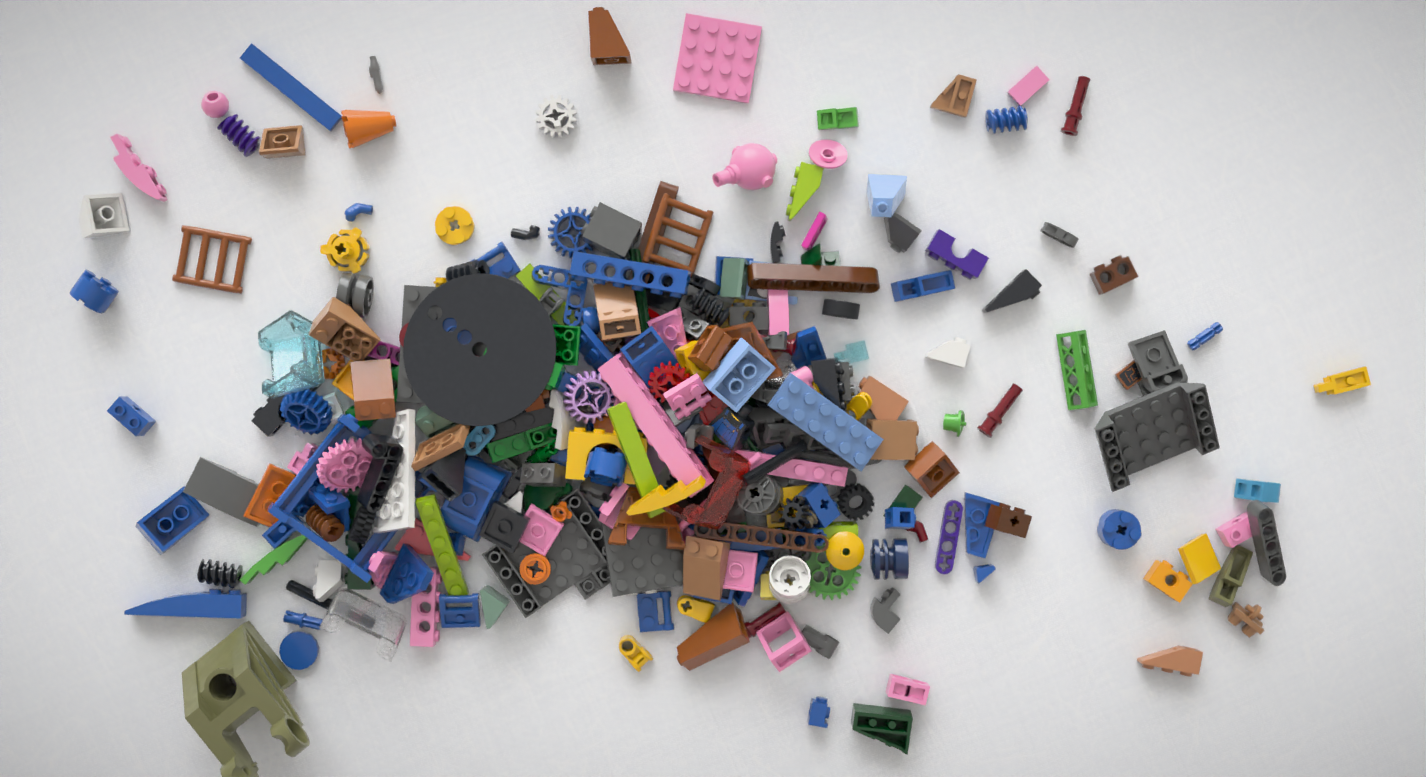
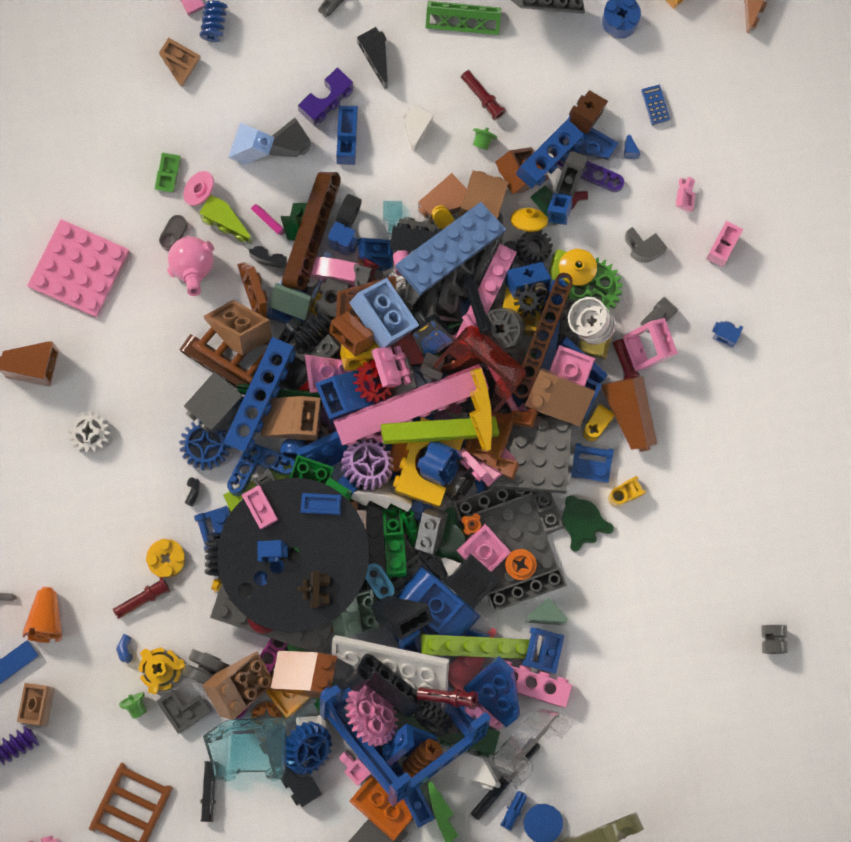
camera: 75 degrees left, 10 degrees down
(237, 330) = (208, 793): none -> black pin
(307, 235) = (134, 705): none -> bright green piece
(309, 283) = (182, 715): none -> dark grey plate
(380, 543) = (454, 698): none -> dark red pin
(415, 219) = (149, 594): none -> dark red pin
(439, 385) = (315, 581): none -> dark brown hips
(440, 446) = (376, 615): medium nougat tile -> none
(476, 328) = (271, 550): none -> blue brick
(515, 305) = (260, 507): none -> bright pink plate
(533, 364) = (321, 504): none -> blue tile
(595, 616) = (582, 521): none -> dark green tile
(696, 233) = (239, 327): none -> medium nougat slope
(732, 241) = (252, 285): none -> dark orange wing
(782, 141) = (174, 228): none -> dark grey piece
(811, 311) = (342, 239): none -> blue brick
(882, 489) = (529, 219): none -> yellow dish
(884, 724) = (752, 273): dark green wedge -> none
(890, 559) = (596, 227): dark blue wheel -> none
(937, 521) = (571, 174): none -> dark grey brick
(948, 638) = (685, 196): none -> bright pink plate
(978, 506) = (566, 133): none -> blue brick
(1036, 585) = (655, 104): none -> blue tile

